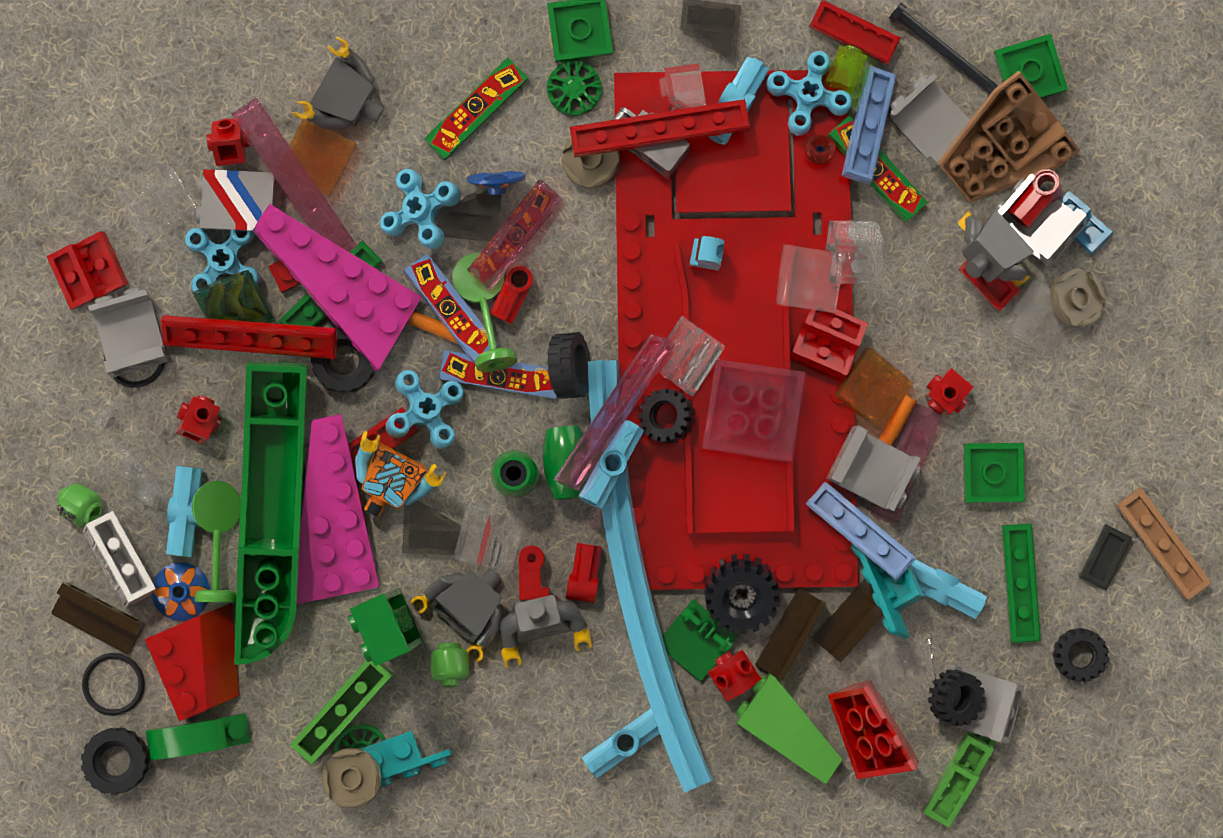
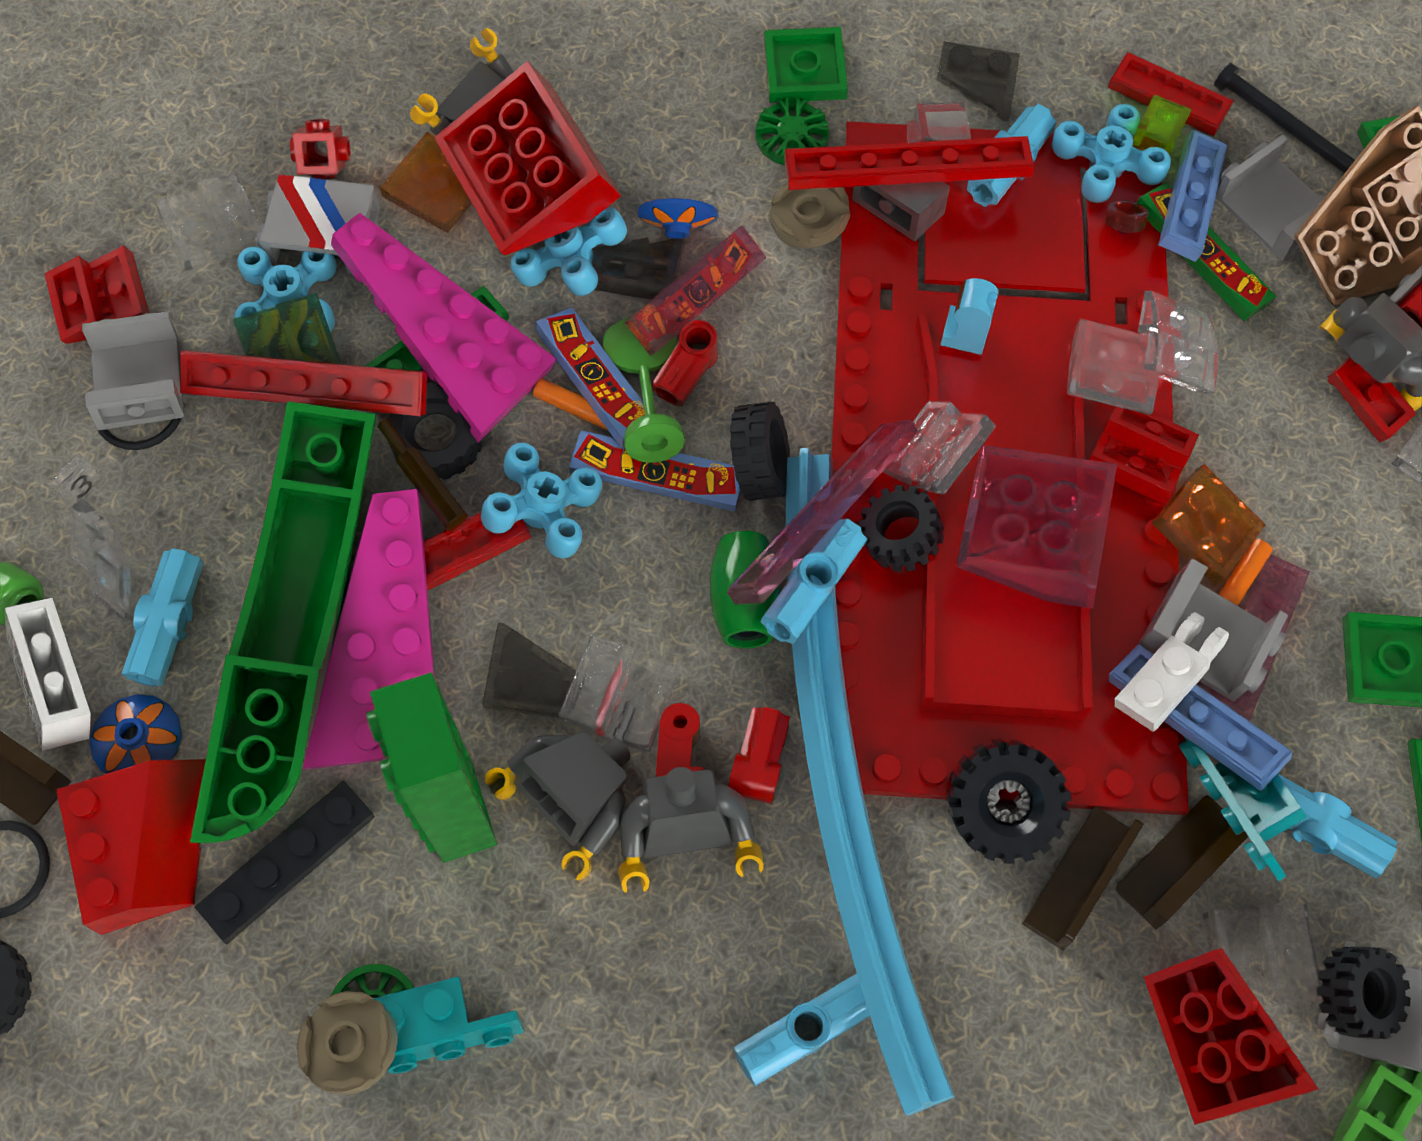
camera: 10 degrees right, 20 degrees down
(191, 425) = (208, 488): red brick -> none
(197, 737) = (111, 955): green arch -> none
(216, 511) = (206, 618): bright green piece -> none
(282, 276) = (370, 322): red plate -> none
(291, 173) = (394, 180): clear pink tile -> none
(292, 664) = (284, 862): none -> black plate
(341, 710) = (349, 932): bright green brick -> none
(343, 403) = (425, 479): none -> dark brown axle
(383, 154) = (526, 163): none -> red slope
(391, 476) = (479, 582): torso -> none
(449, 664) = (534, 877): bright green head -> none
(476, 108) = (666, 141): tile -> none
(500, 473) = (666, 591): green piece -> none
(697, 640) = (933, 875): green hinge -> none
(734, 674) = (991, 930): red brick -> none
(784, 726) = (1078, 1031): bright green slope -> none
(842, 506) = (1170, 674): none -> white hinge
(958, 389) = (1321, 537): red brick -> none

